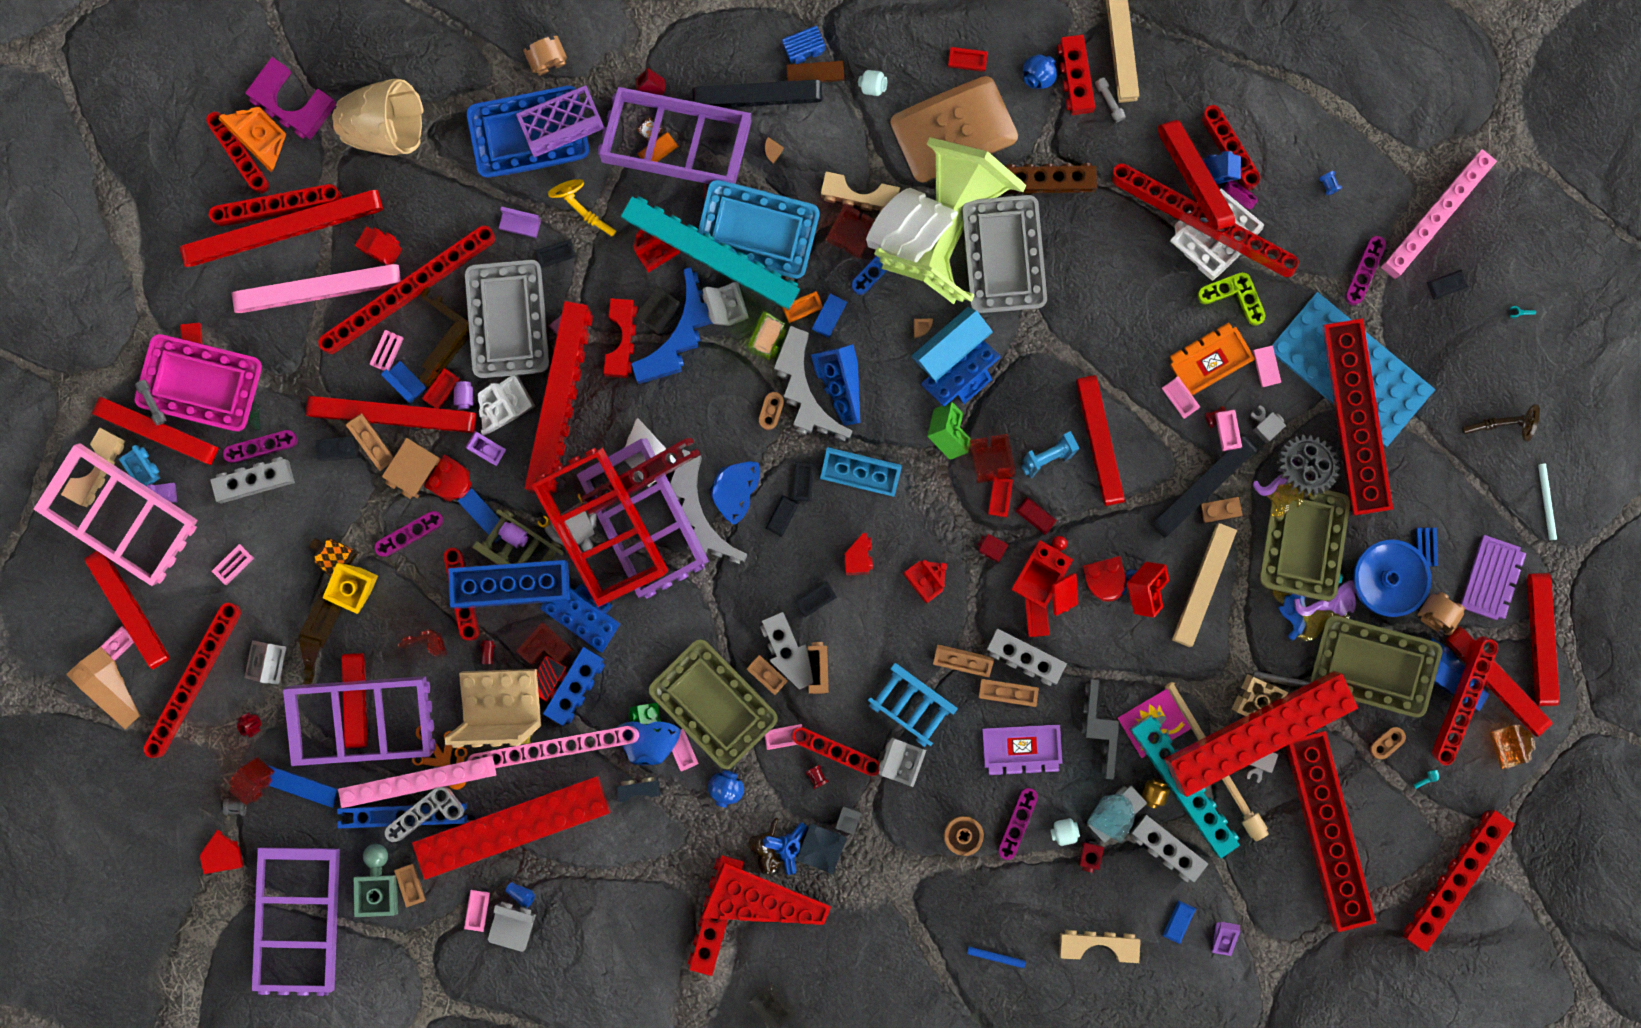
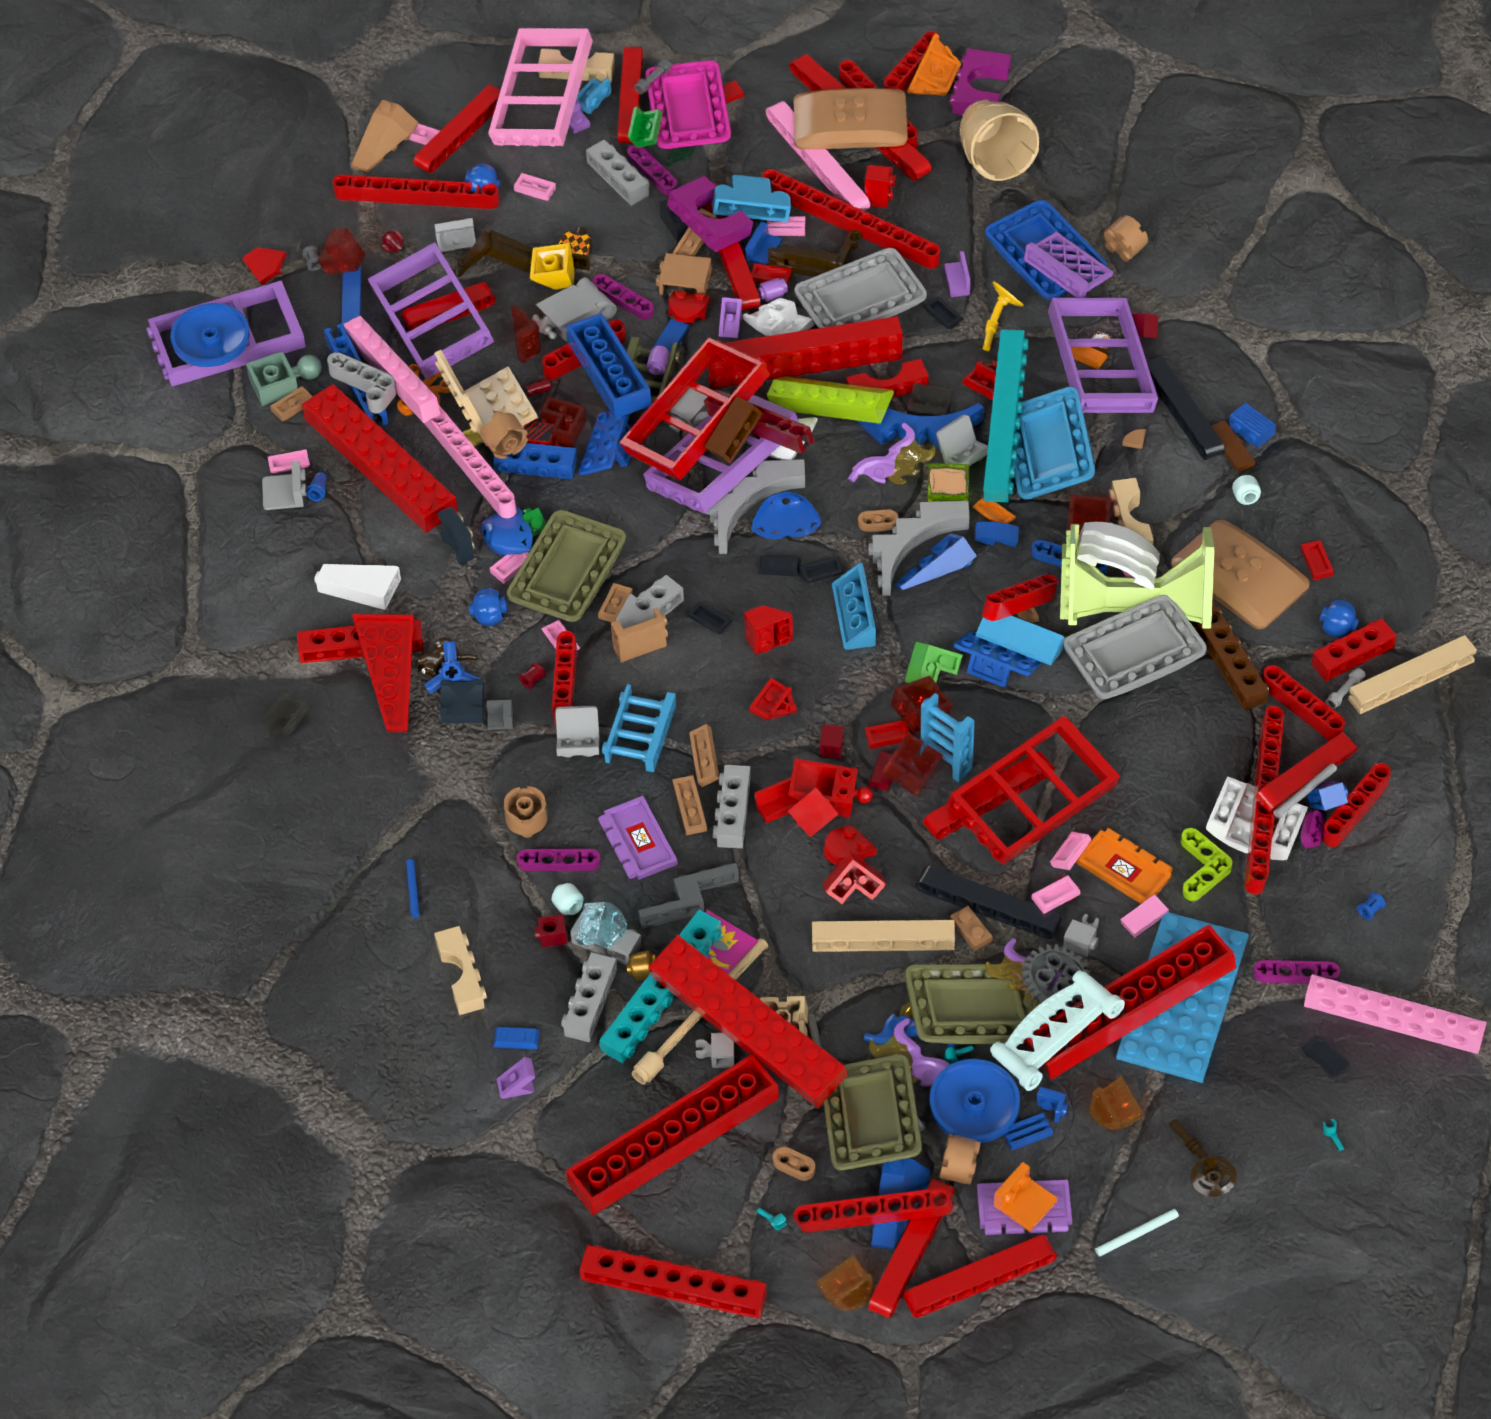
camera: 70 degrees right, 30 degrees down
(205, 612) = (481, 175): none -> blue plant
(215, 436) = (644, 127): none -> green bracket
(288, 240) = (850, 118): none -> medium nougat wedge
(308, 941) = (210, 335): none -> blue dish
(351, 372) = (753, 198): none -> dark azure brick
(385, 423) = (714, 232): none -> magenta arch
(411, 587) = (572, 306): none -> light grey piece
(552, 709) = (504, 435): none -> medium nougat brick
(622, 396) = (830, 399): none -> lime slope
(648, 504) = (733, 430): none -> reddish brown brick
(653, 890) = (359, 583): none -> white slope
(716, 369) = (898, 462): none -> piece
(923, 335) = (1020, 597): none -> red beam
(1051, 492) = (909, 767): none -> clear red piece
(1093, 432) = (1079, 745): none -> red window
(1119, 135) = (1303, 703): none -> red beam
(1211, 167) = (1305, 790): none -> light grey bar
(1384, 525) = (1025, 1063): none -> light aqua piece
(1410, 517) = (1053, 1100): none -> blue bracket
(1434, 469) = (1115, 1106): none -> clear orange slope
(1496, 577) = (1023, 1198): none -> orange bracket

